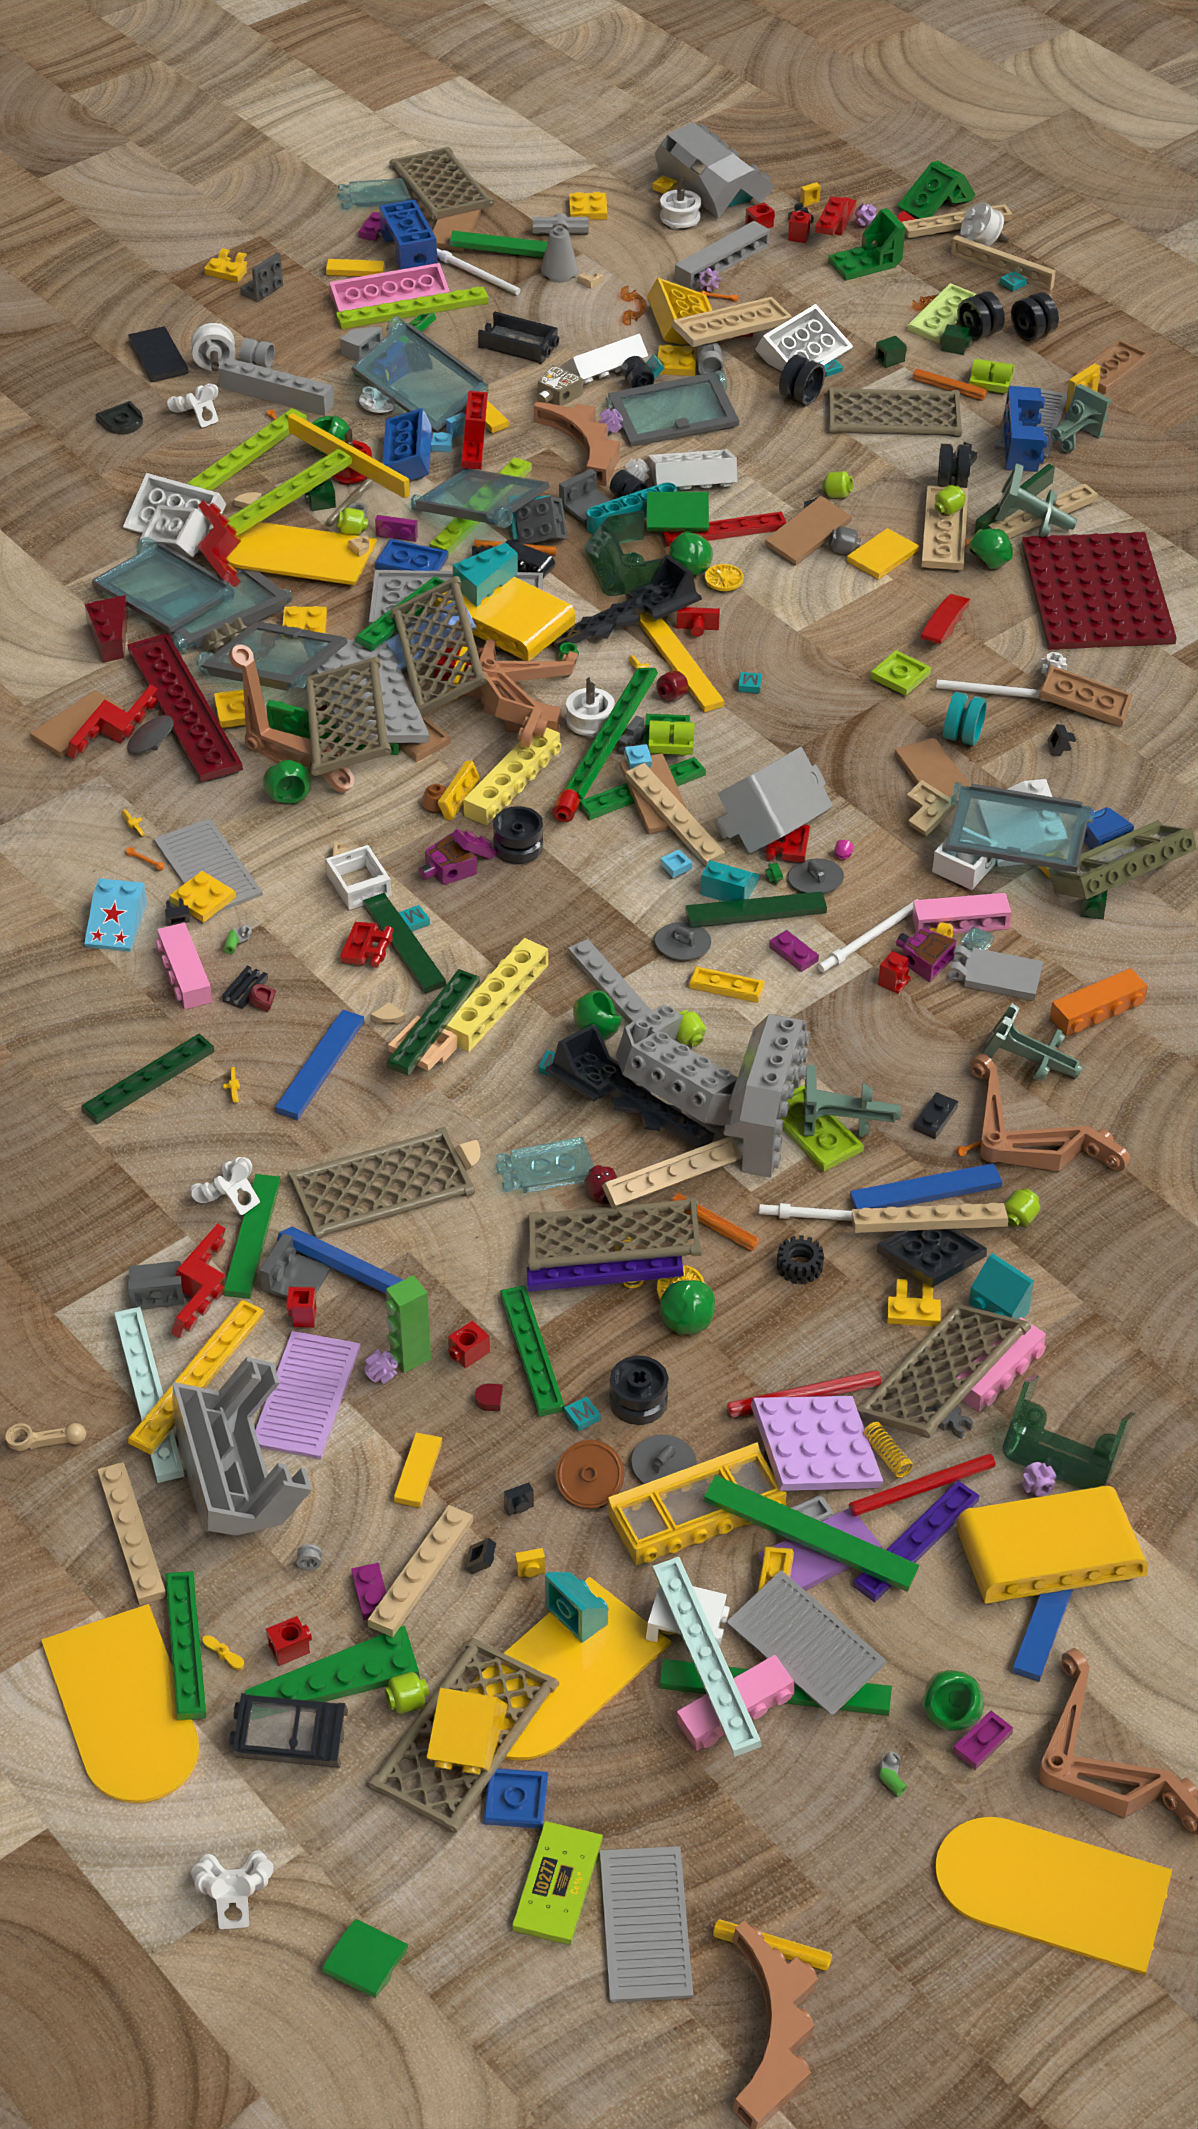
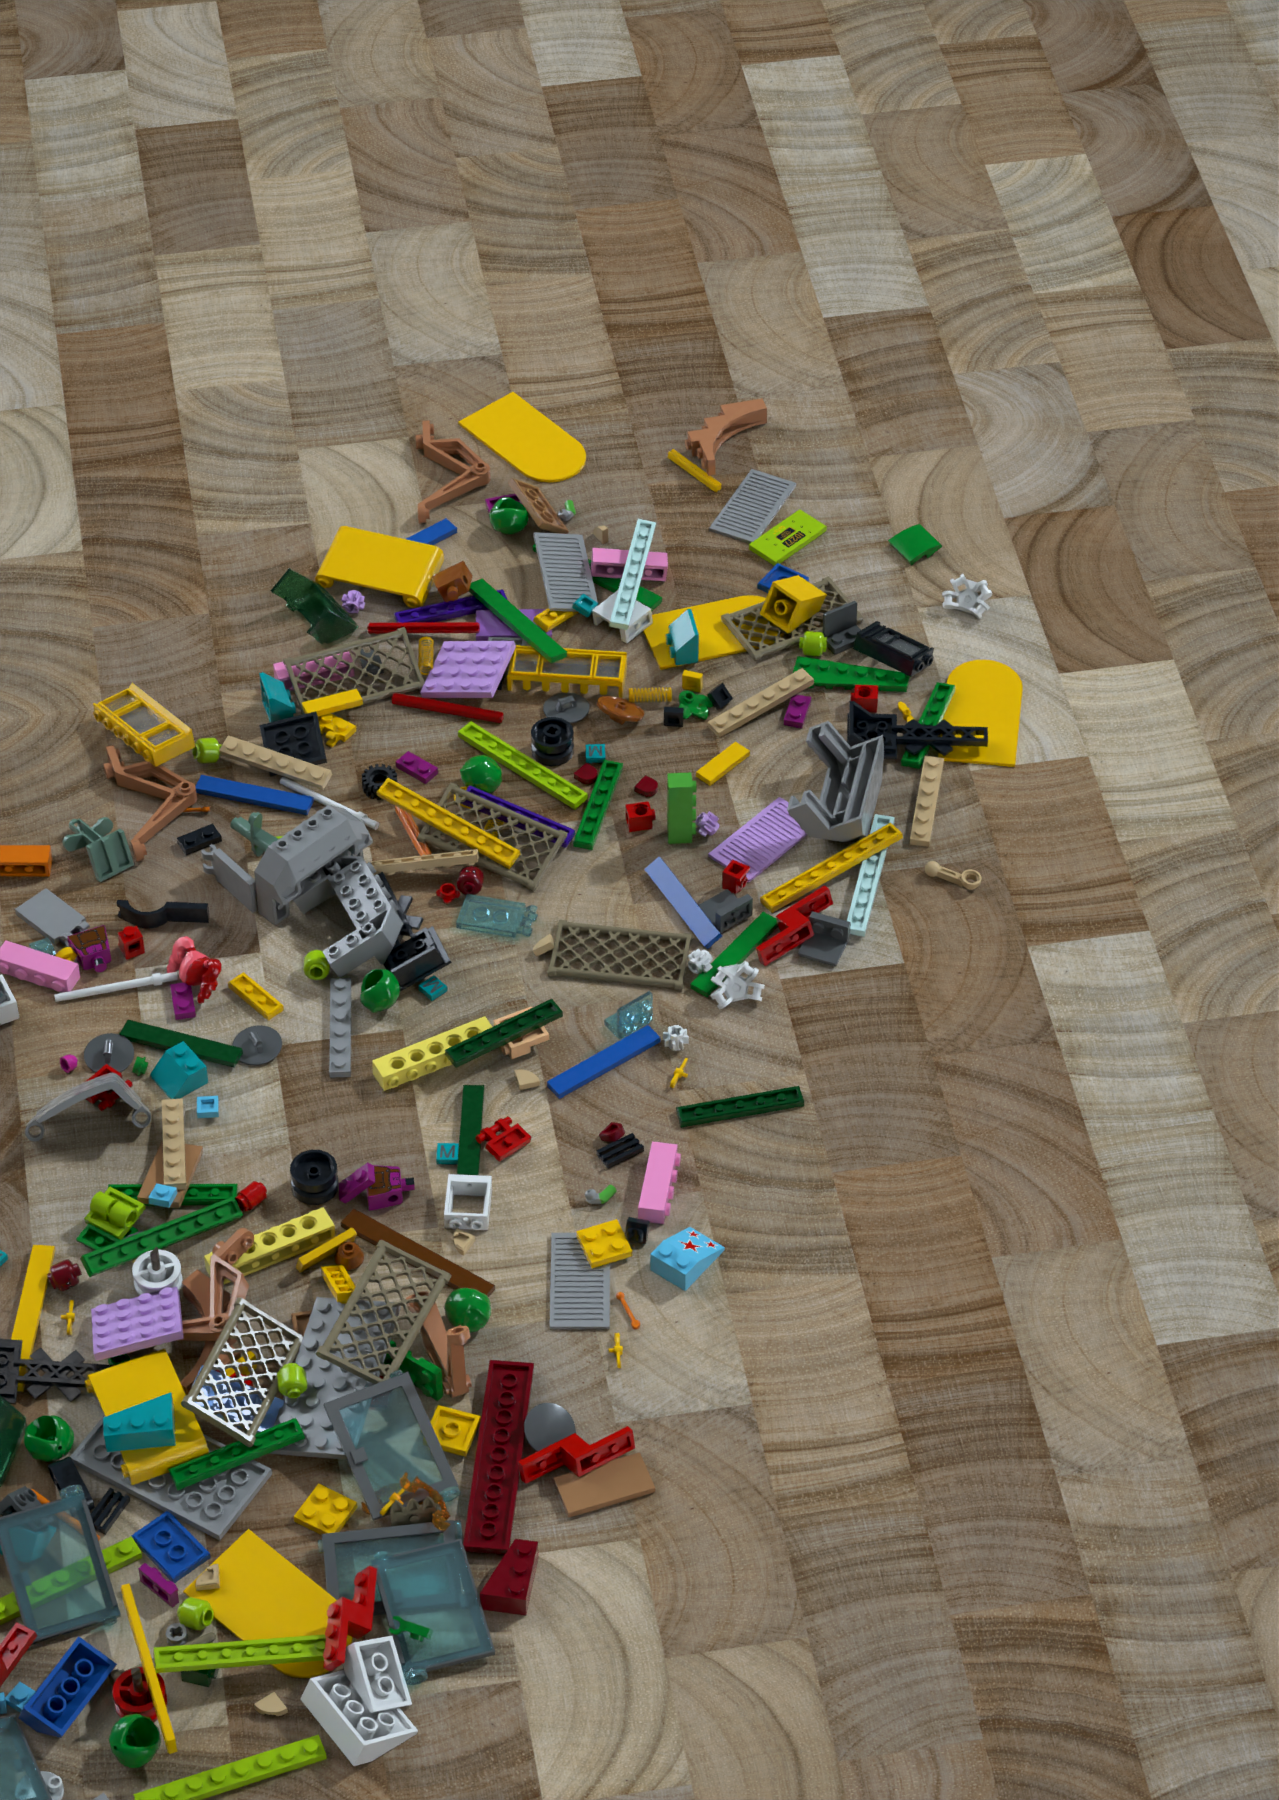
camera: 150 degrees left, 0 degrees up
(159, 555) = (416, 1631): none -> green plate
(197, 639) = (439, 1516): none -> clear orange piece
(244, 631) = (395, 1496): none -> yellow piece
(250, 1561) = (864, 726): none -> black piece
(257, 1109) = (676, 1037): none -> white gear
(282, 1198) = (700, 961): none -> white gear
(318, 1111) = (631, 1016): none -> clear light blue bracket
(371, 824) = (373, 1231): none -> reddish brown tile
(377, 1735) = (841, 627): none -> dark grey bracket
(394, 660) = (292, 1380): none -> lime head
(416, 749) = (338, 1282): none -> yellow plate
(507, 1534) = (694, 704): none -> green plate
(546, 1529) = (649, 693): none -> yellow piece
(565, 656) = (136, 1323): none -> lavender plate
(569, 569) = (48, 1438): none -> green piece
(572, 1381) = (586, 774): none -> dark red tile
(620, 1165) = (447, 892): none -> red plate
(670, 1214) = (448, 823): none -> yellow tile
(671, 1355) = (523, 765): none -> lime plate
(744, 1605) = (584, 605): none -> teal tile
(776, 1302) = (416, 767): none -> magenta plate
(807, 964) = (194, 967): none -> hair
(817, 1753) = (601, 534): none -> tan tile
(853, 1065) = (231, 877): none -> light grey tile
(882, 1021) = (169, 912): none -> black piece
(929, 1742) = (538, 506): none -> medium nougat tile
(933, 1320) = (333, 703): none -> yellow tile
(934, 1549) = (453, 581): none -> dark orange torso
(1113, 1185) = (144, 725): none -> yellow window

